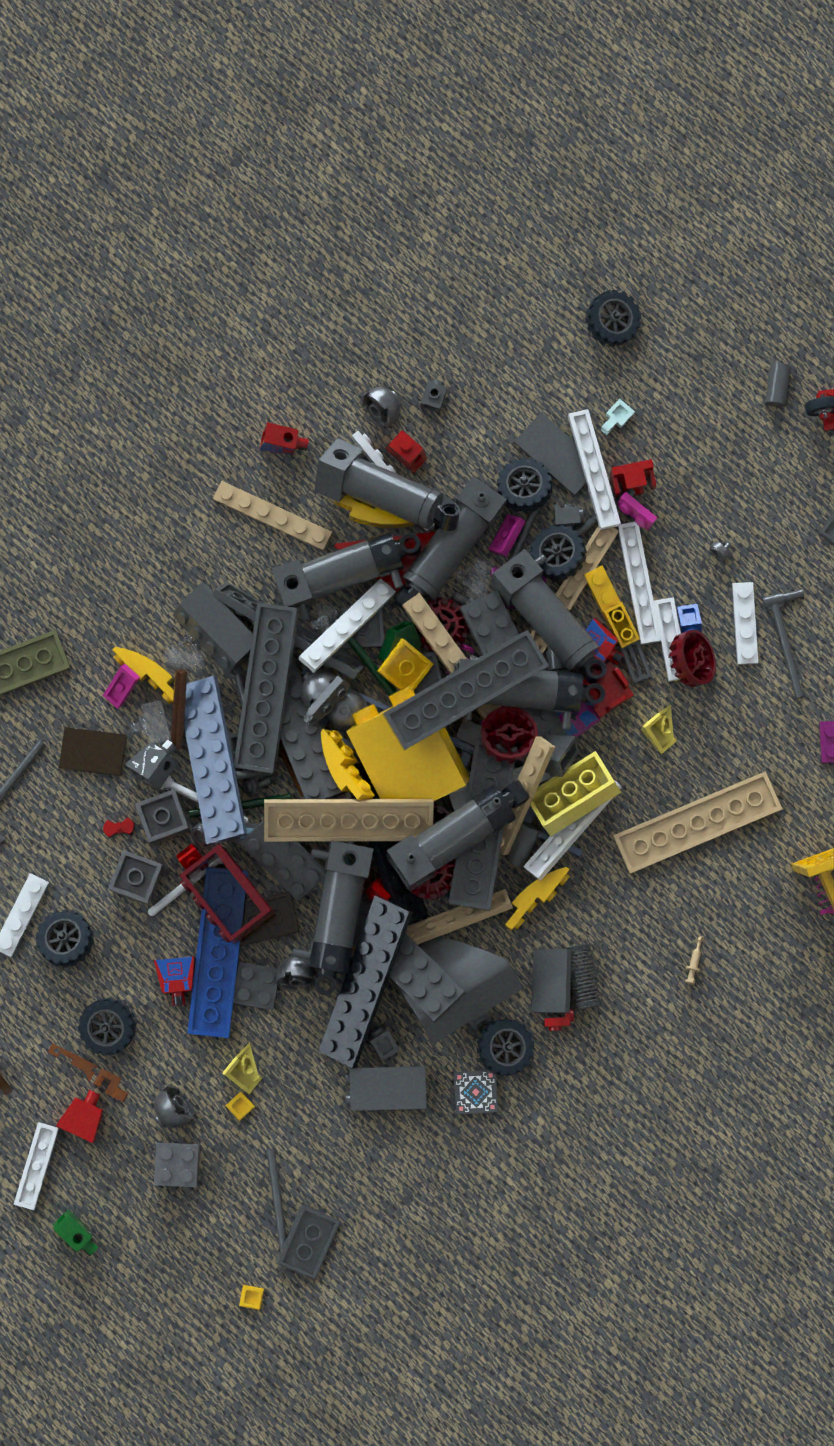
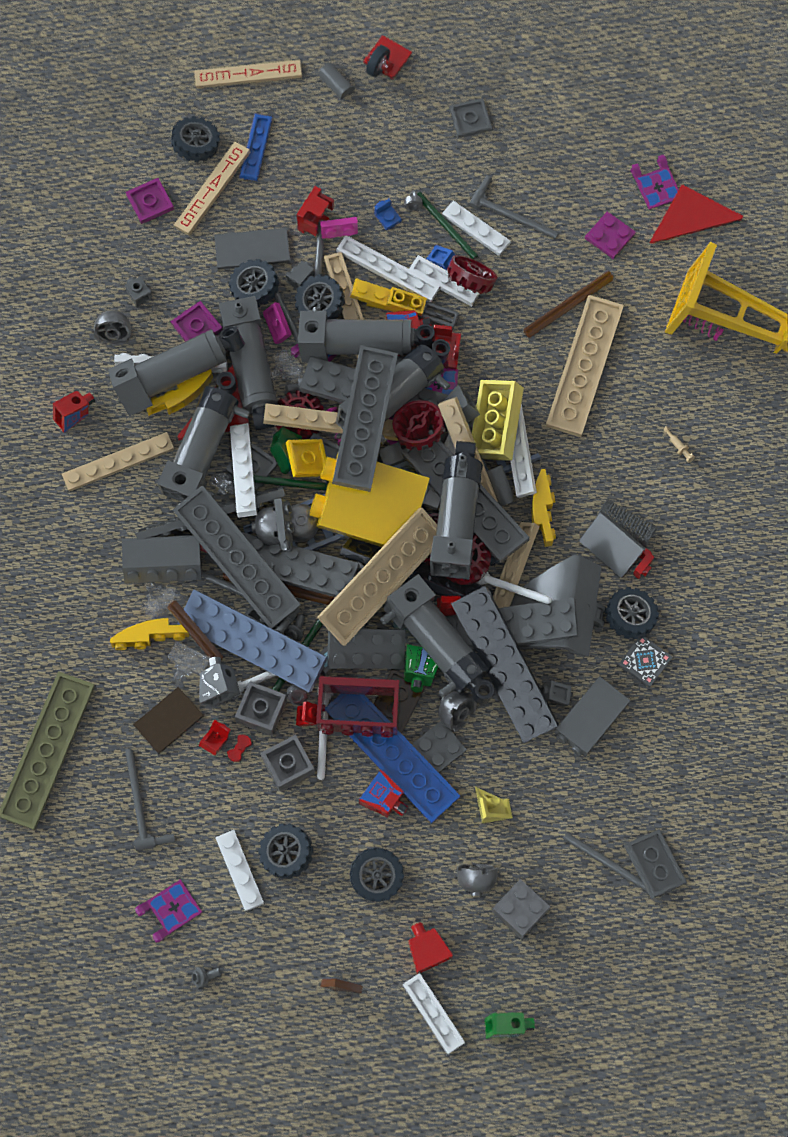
camera: 50 degrees left, 10 degrees down
(87, 1066) = (390, 916): dark orange piece -> none
(108, 801) = (215, 737): none -> red bracket
(121, 686) = (141, 659): dark pink plate -> none
(240, 1106) = (515, 830): yellow tile -> none
(251, 1297) = (661, 938): yellow tile -> none
(304, 914) = (419, 668): none -> green torso
(340, 764) = (339, 551): yellow slope -> none
(406, 451) = (158, 336): red torso -> none
(437, 935) = (514, 588): none -> white piece
(446, 470) = (195, 322): none -> magenta plate
(524, 331) = (149, 200): none -> magenta plate
(582, 372) = (212, 188): none -> tan tile
(594, 469) = (285, 232): white plate -> none
(617, 415) = (262, 190): light aqua plate -> none
(654, 373) = (257, 144): none -> blue tile
(660, 730) = (500, 339): light yellow slope -> none
(689, 538) = (386, 214): none -> blue bracket
(717, 305) = (248, 74): none -> tan tile
(725, 596) = (446, 225): none -> dark green piece
(743, 761) = (568, 304): none -> reddish brown axle

